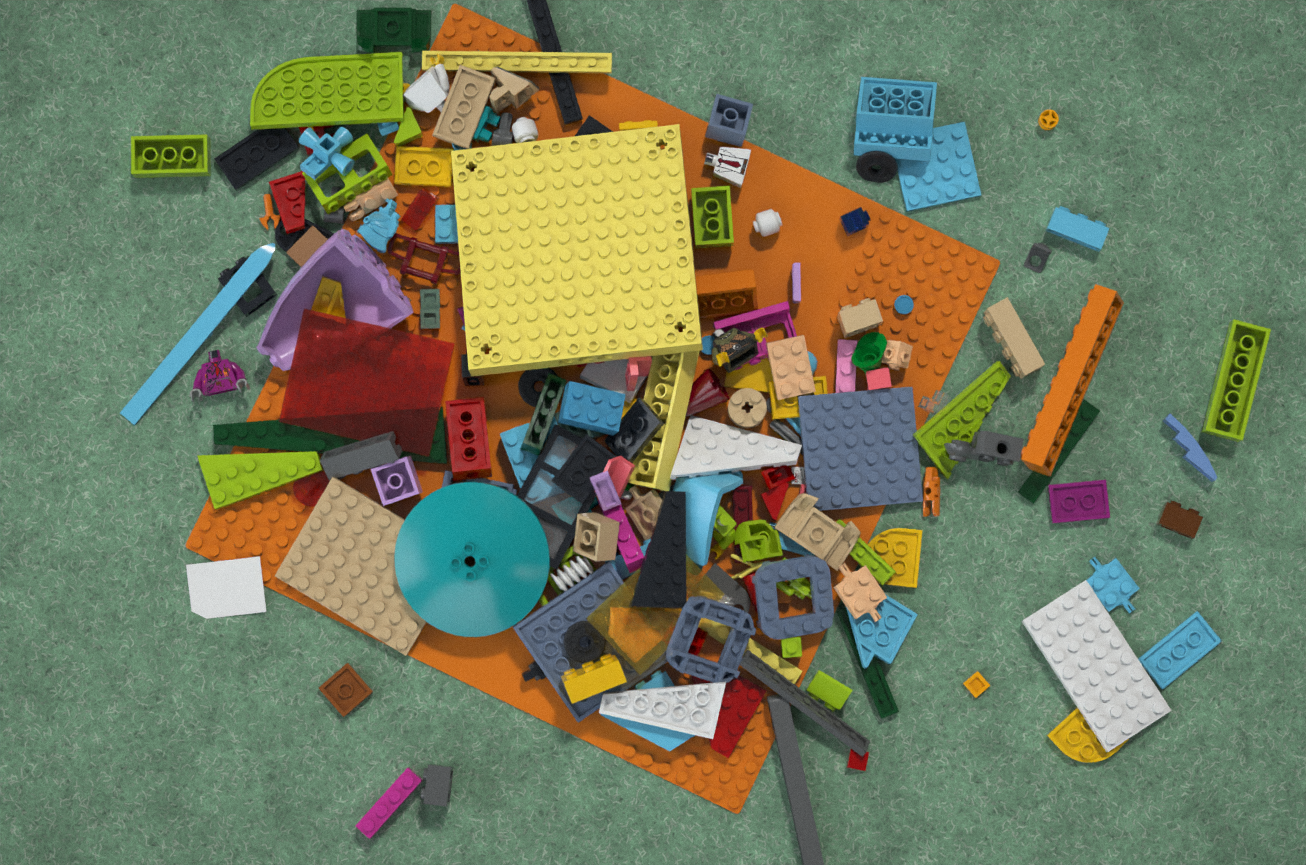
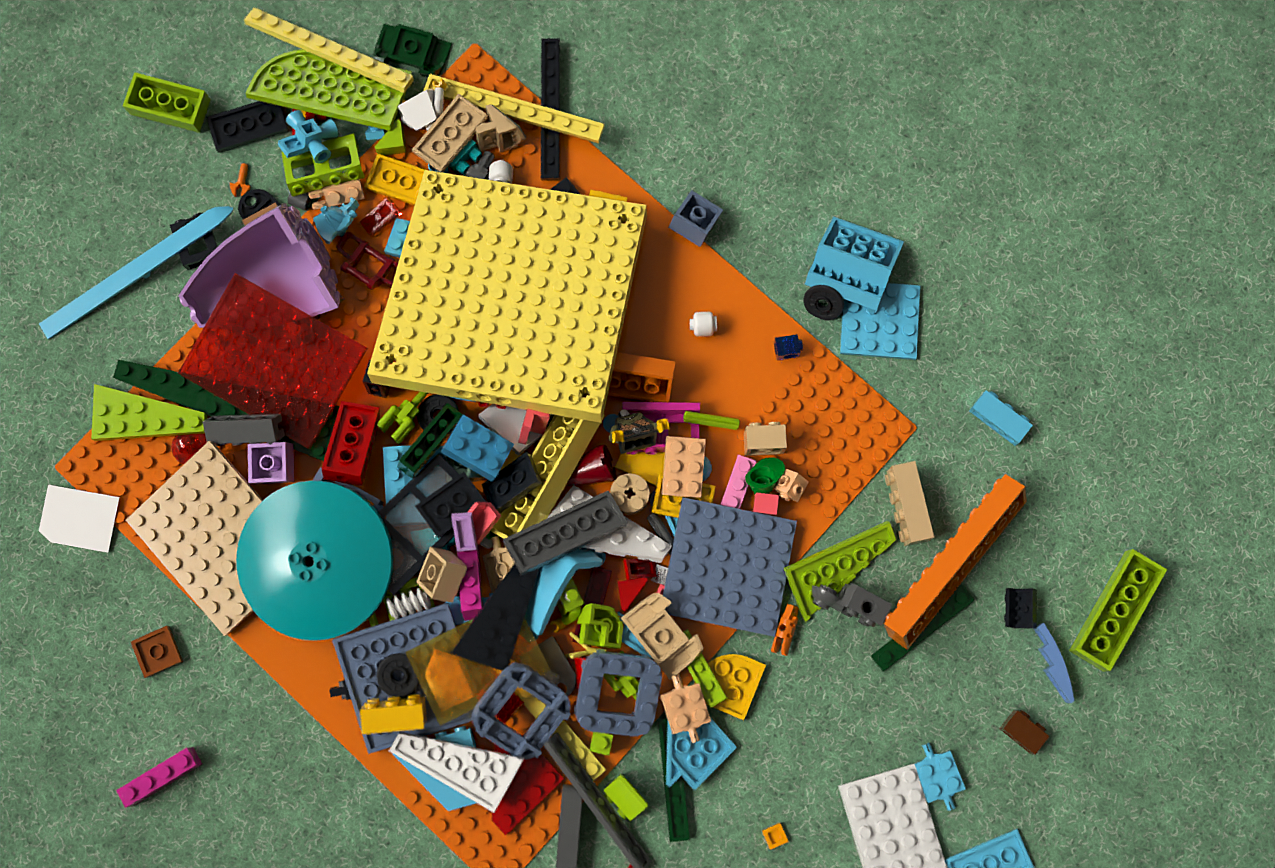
camera: 15 degrees right, 5 degrees down
(218, 377) = (138, 317): magenta torso -> none
(290, 200) = (262, 175): red wing -> none
(312, 54) = (329, 50): none -> light yellow plate
(329, 298) = (265, 272): yellow wing -> none
(430, 308) = (359, 311): sand green slope -> none
(438, 785) = (210, 774): dark grey brick -> none
(508, 398) = (403, 416): none -> lime plant
(700, 463) = (564, 532): none -> dark grey plate
(712, 217) = (652, 303): lime brick -> none
(729, 164) = (684, 259): torso -> none
(796, 283) = (713, 389): lavender tile -> none
(802, 314) = (711, 420): none -> lime axle
(903, 304) = (811, 440): dark azure piece -> none
(935, 404) = (814, 545): clear piece -> none
(1038, 250) = (957, 426): dark grey bracket -> none
(1050, 117) = (1003, 303): light orange wheel -> none
(1079, 501) = (928, 683): magenta plate -> none
(1145, 406) = (1021, 608): none -> black bracket

